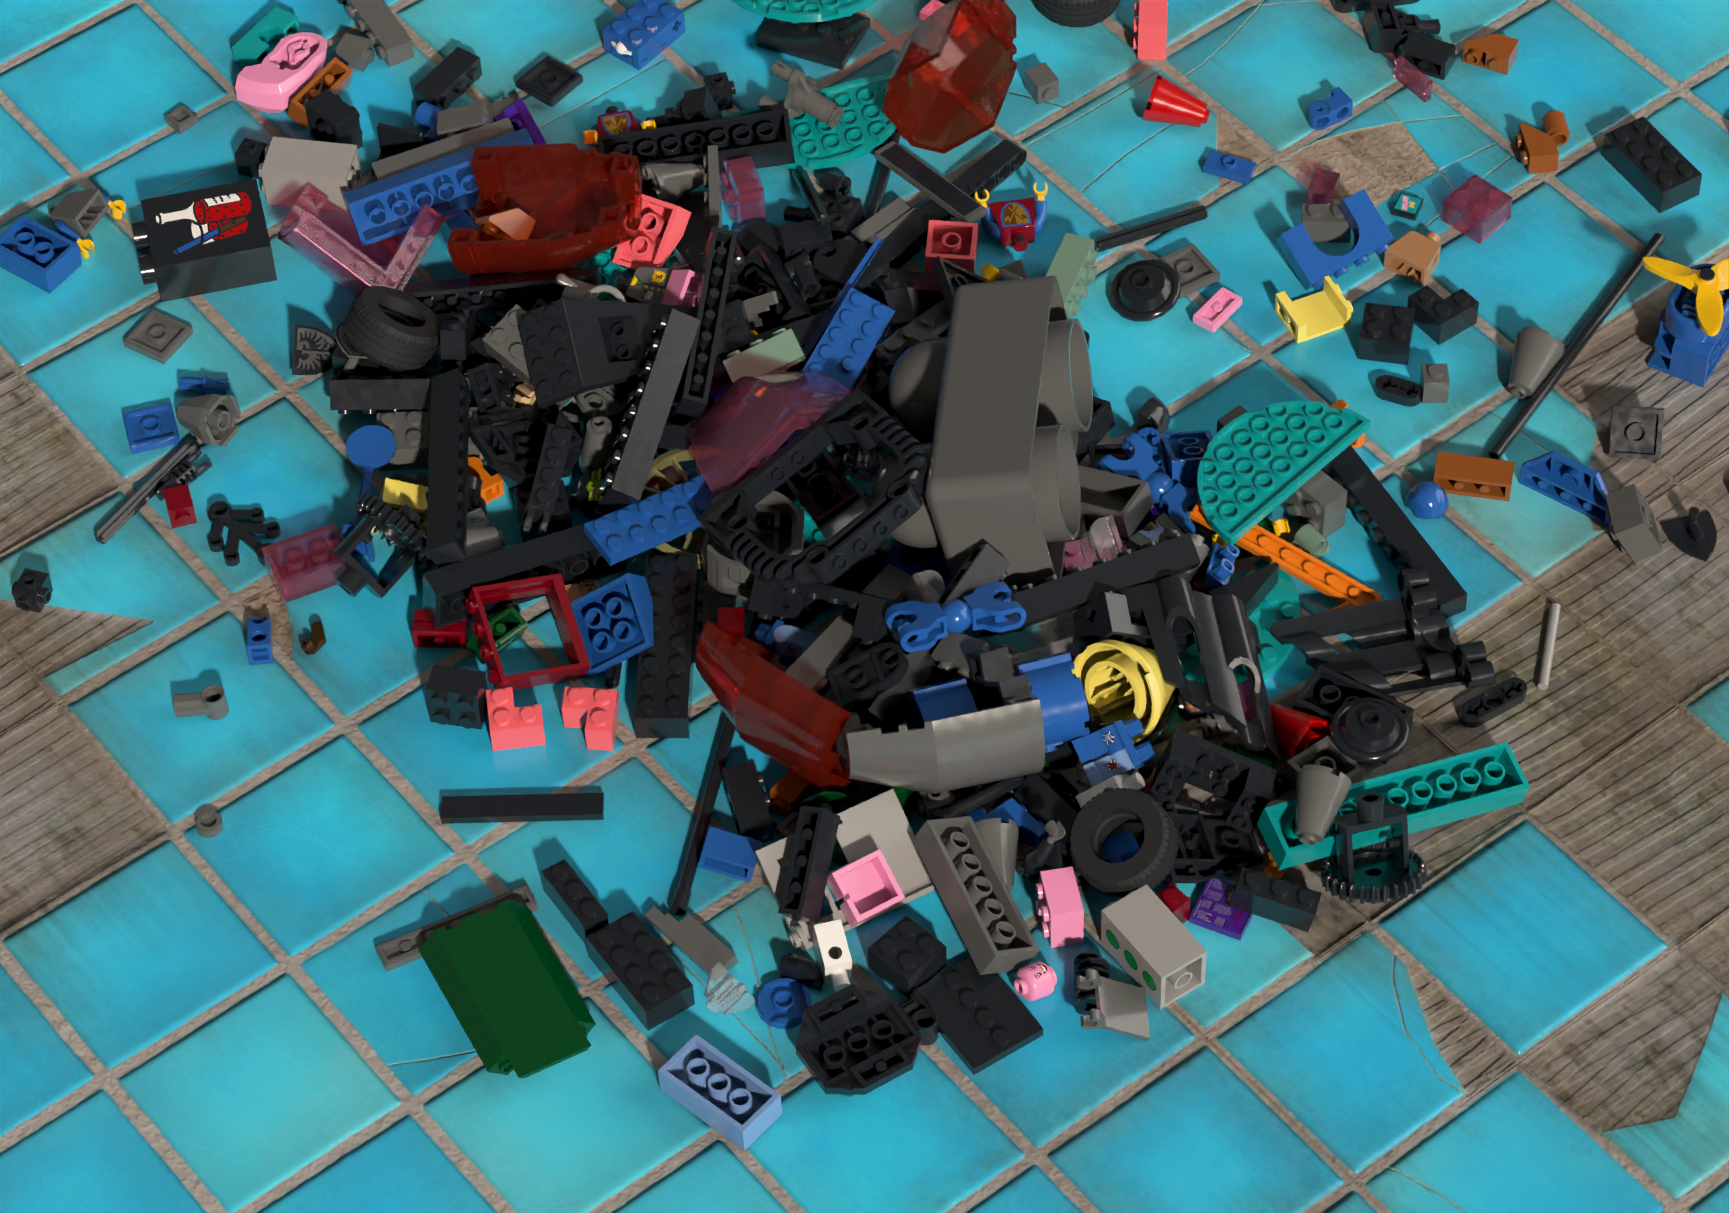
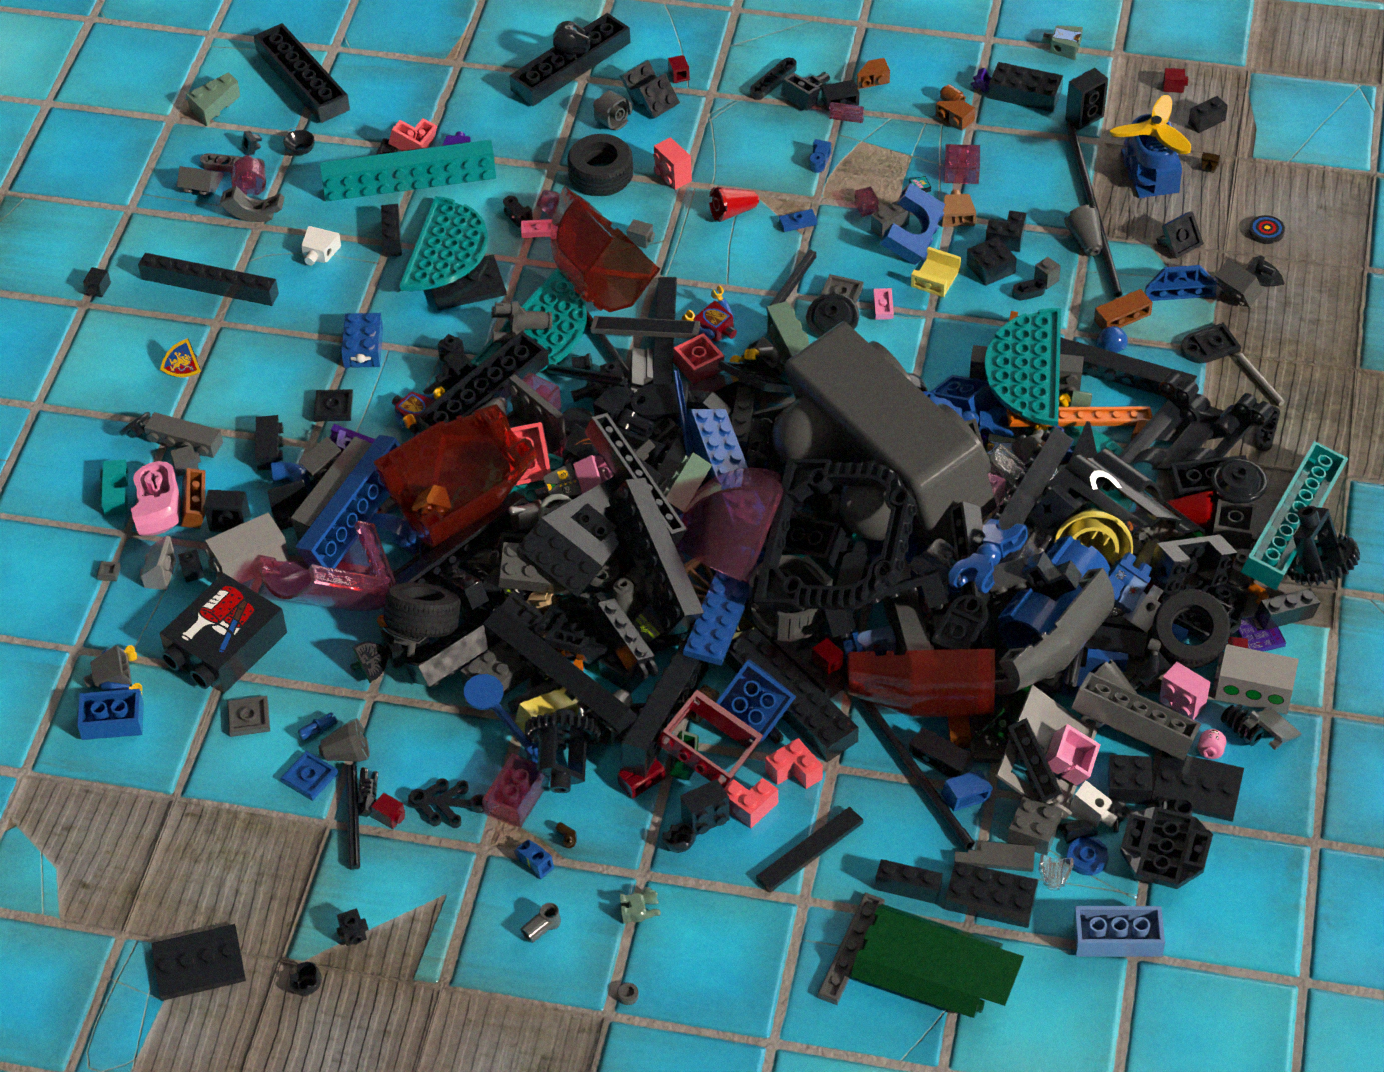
camera: 40 degrees left, 0 degrees up
(221, 142) = (159, 565): none -> light grey slope
(302, 747) = (634, 907): none -> sand green animal
(408, 711) = (679, 837): none -> black hair
(758, 935) = (1035, 825): none -> dark grey brick
(866, 976) = (1119, 809): none -> black piece
(1318, 801) = (1277, 533): dark grey cone -> none
(1535, 572) = (1210, 344): none -> black tile
(1609, 124) = (981, 80): none -> dark purple tile
(1693, 214) = (1086, 98): none -> black brick

